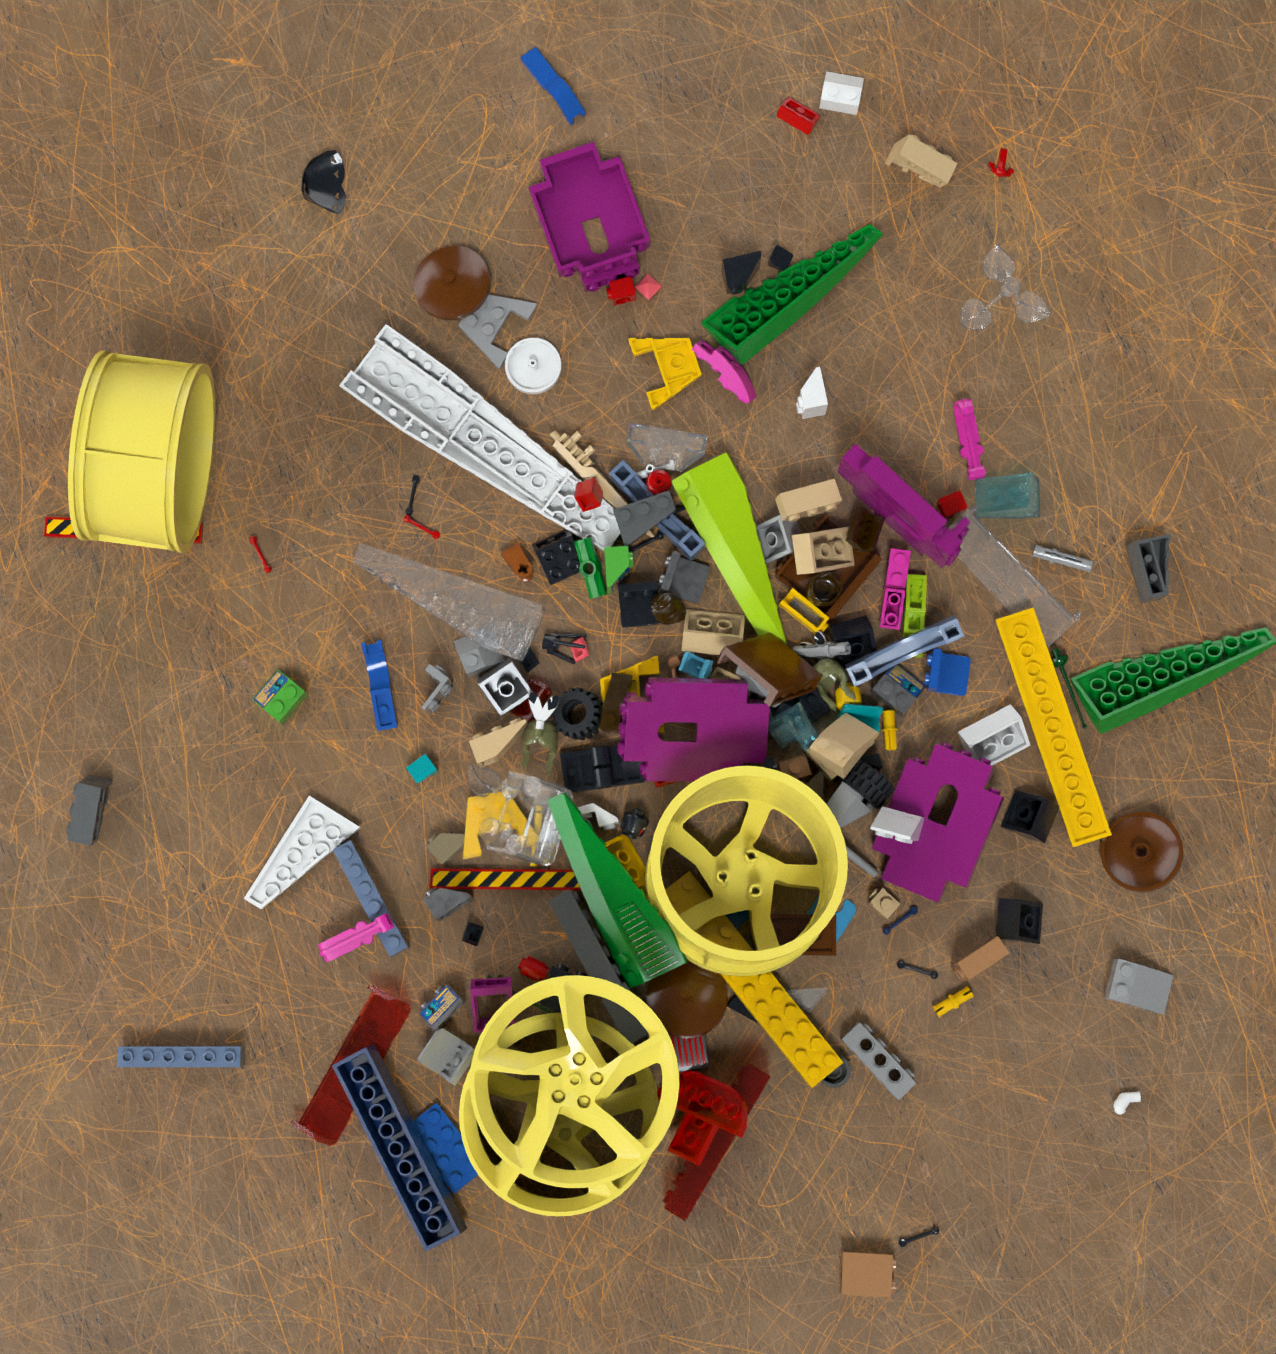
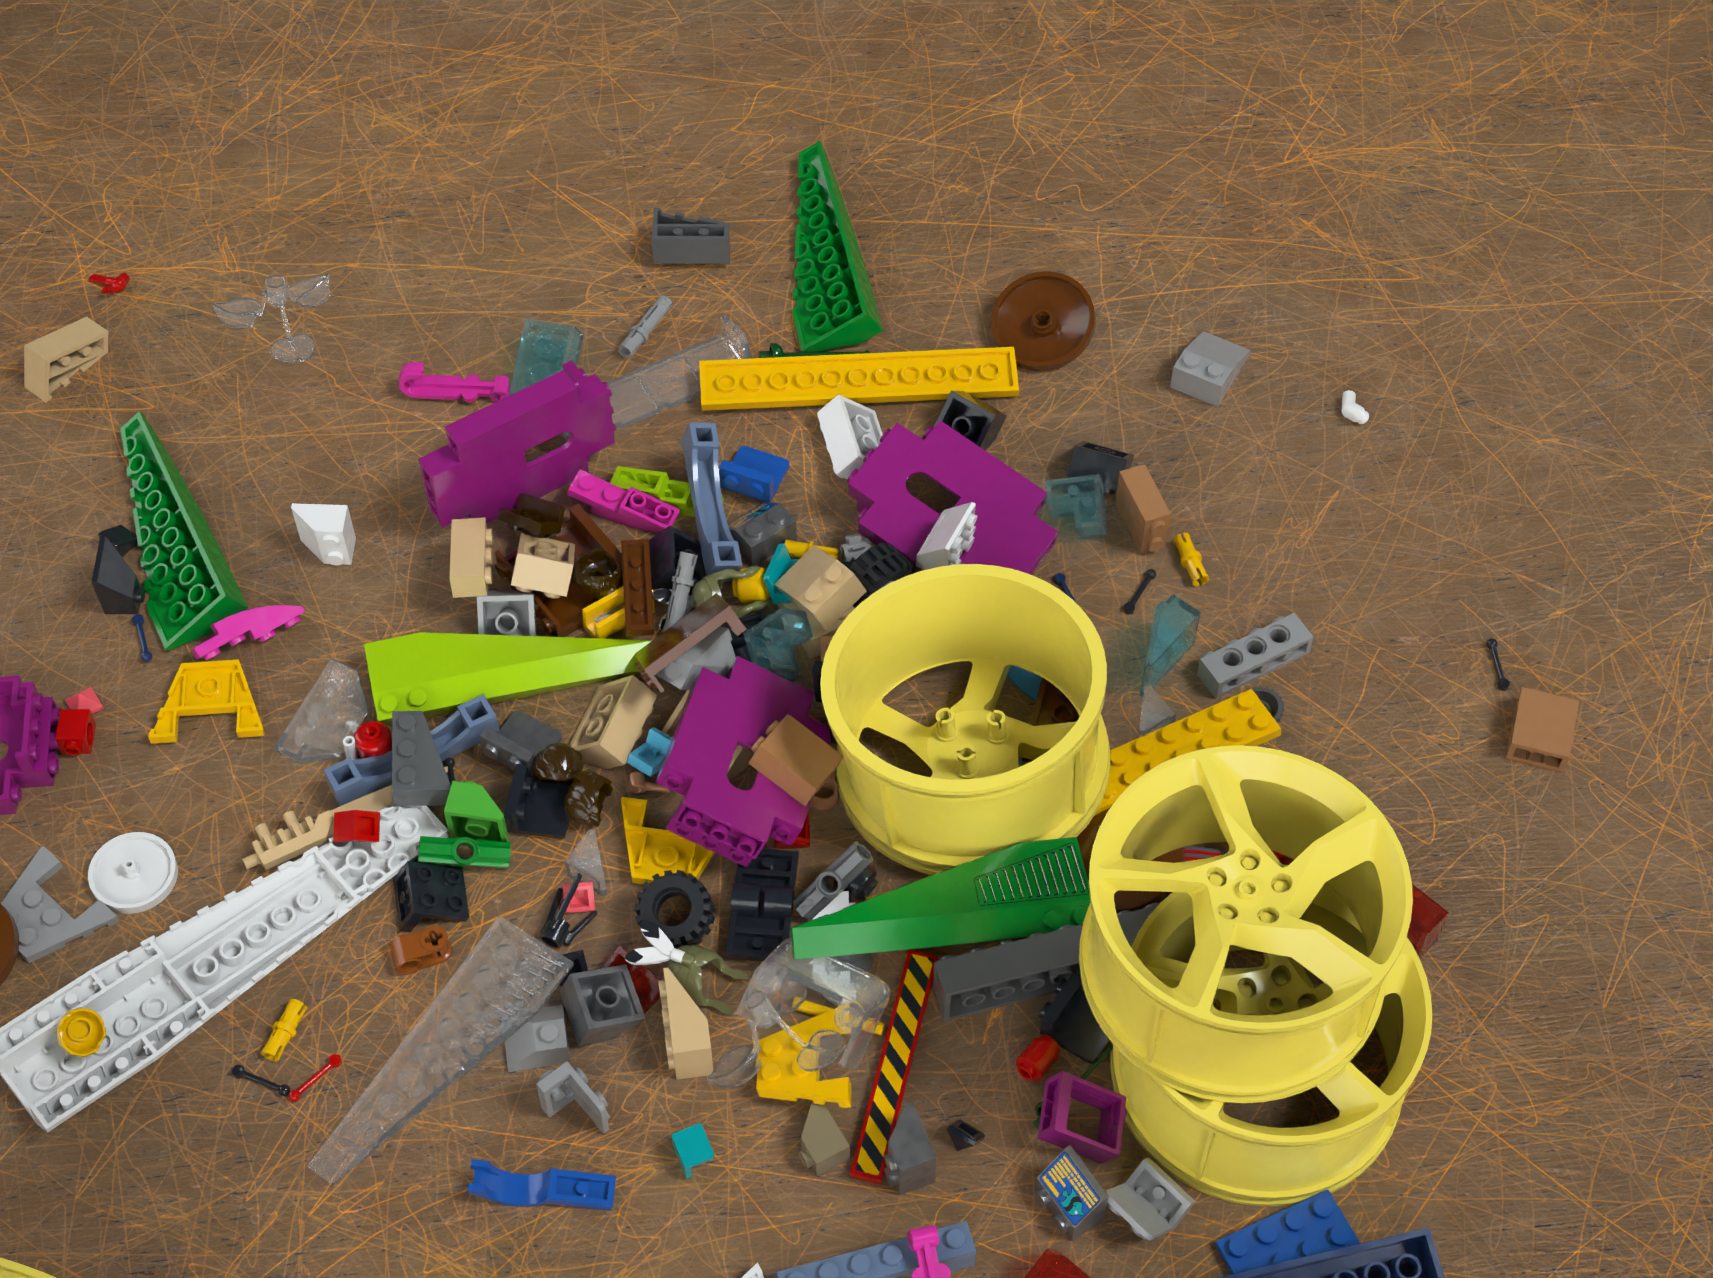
camera: 80 degrees left, 25 degrees down
(406, 380) = (81, 1032): none -> yellow hair
(446, 497) = (284, 1030): none -> yellow pin
(604, 648) = (587, 861): none -> clear slope
(618, 688) = (676, 854): dark brown slope -> none
(620, 810) = (822, 892): none -> dark grey piece
(647, 633) = (586, 797): none -> dark brown hair
(693, 760) = (794, 759): none -> medium nougat brick
(720, 296) = (138, 621): none -> dark blue hinge
(818, 619) = (637, 587): none -> reddish brown tile
(872, 996) = (1170, 639): none -> clear light blue slope
(895, 762) = (854, 547): none -> light grey gear
(977, 916) = (1079, 498): none -> clear light blue brick

